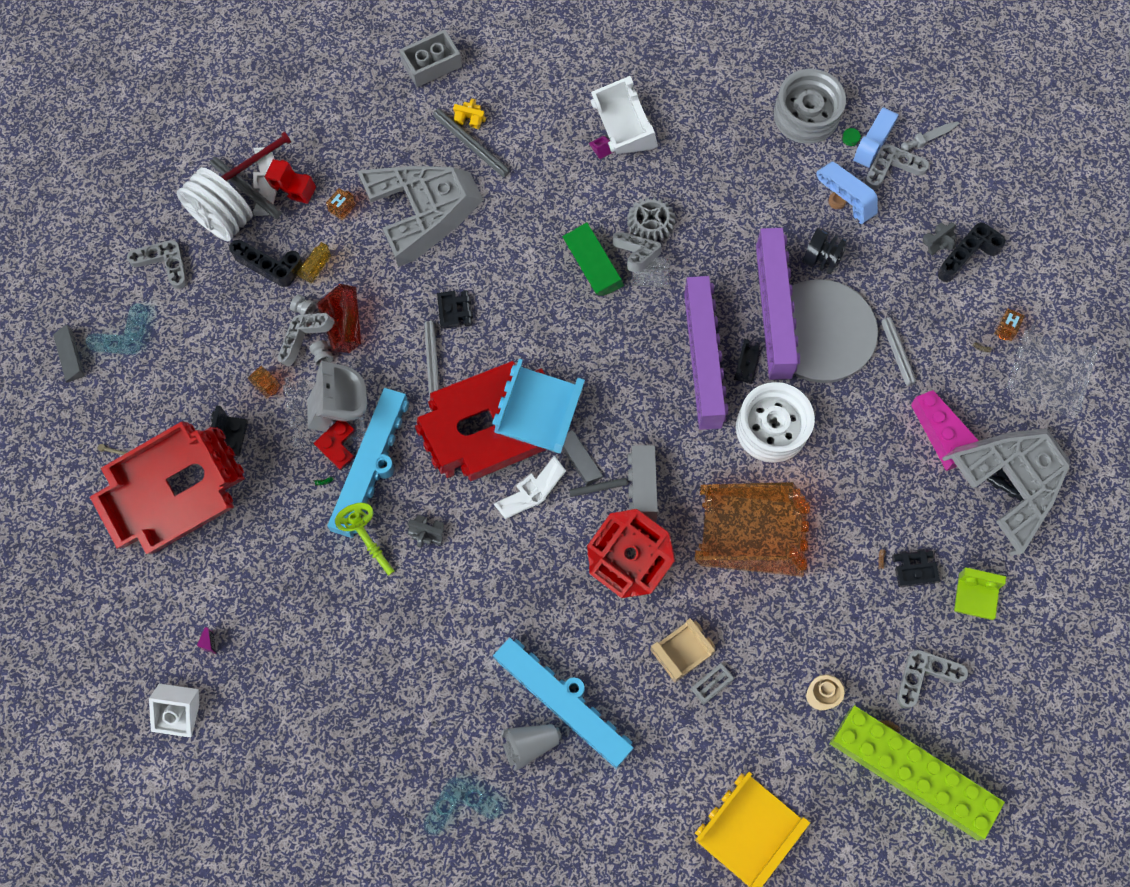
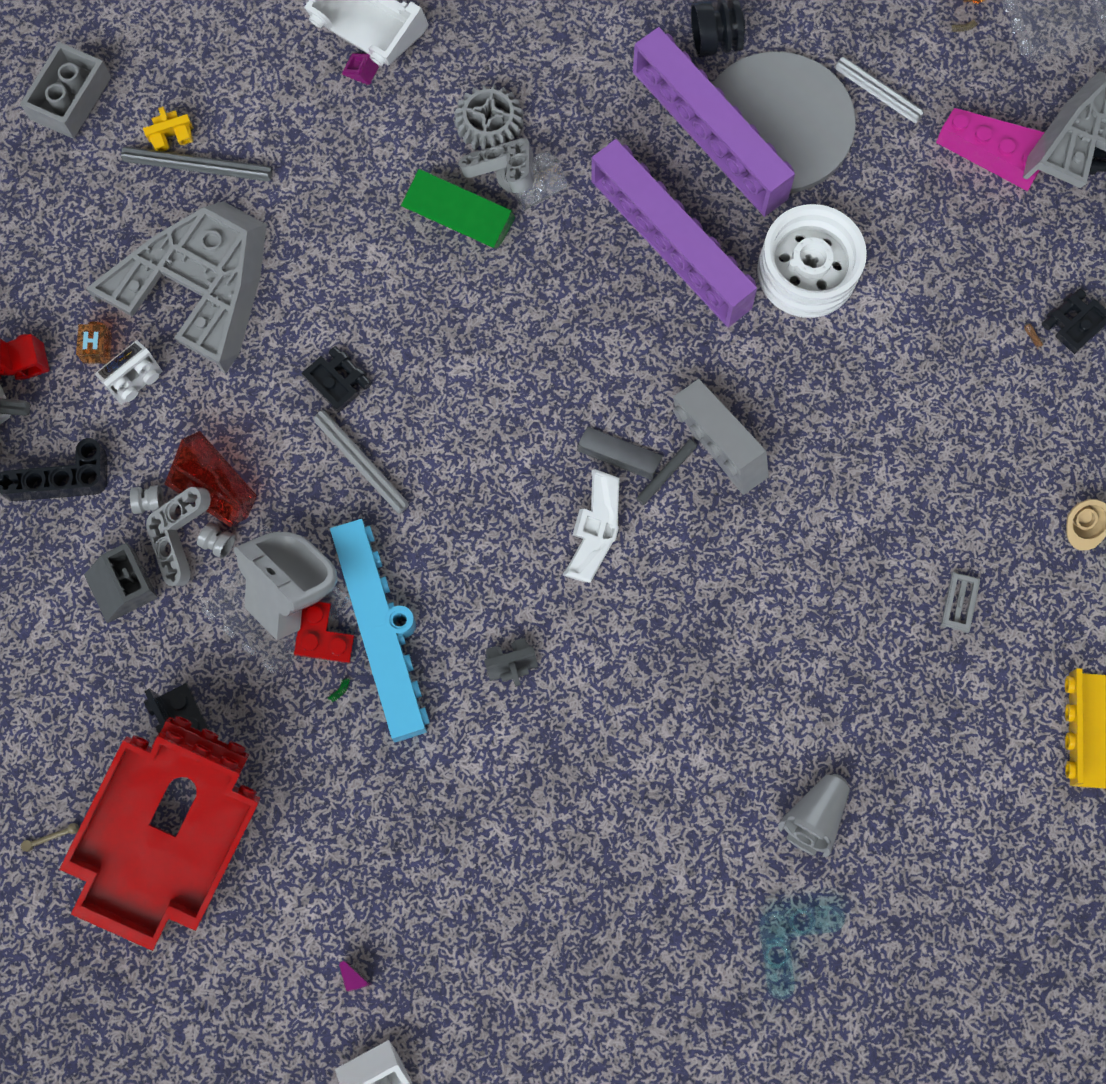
camera: 35 degrees left, 5 degrees up
(255, 341) = (119, 582): none -> dark grey slope
(264, 382) = (173, 623): clear orange brick -> none
(314, 263) = (118, 438): clear yellow bracket -> none
(345, 231) = (129, 372): none -> white slope
(357, 524) = (429, 713): lime dish -> none
(479, 452) = (507, 437): red panel -> none
(537, 408) = (536, 426): medium azure panel -> none
(563, 703) = (819, 742): medium azure hinge -> none
(609, 553) = (791, 541): red piece -> none
(683, 650) = (902, 587): tan panel -> none
(747, 362) = (724, 213): black hinge -> none
(755, 528) = (876, 397): clear orange windscreen -> none

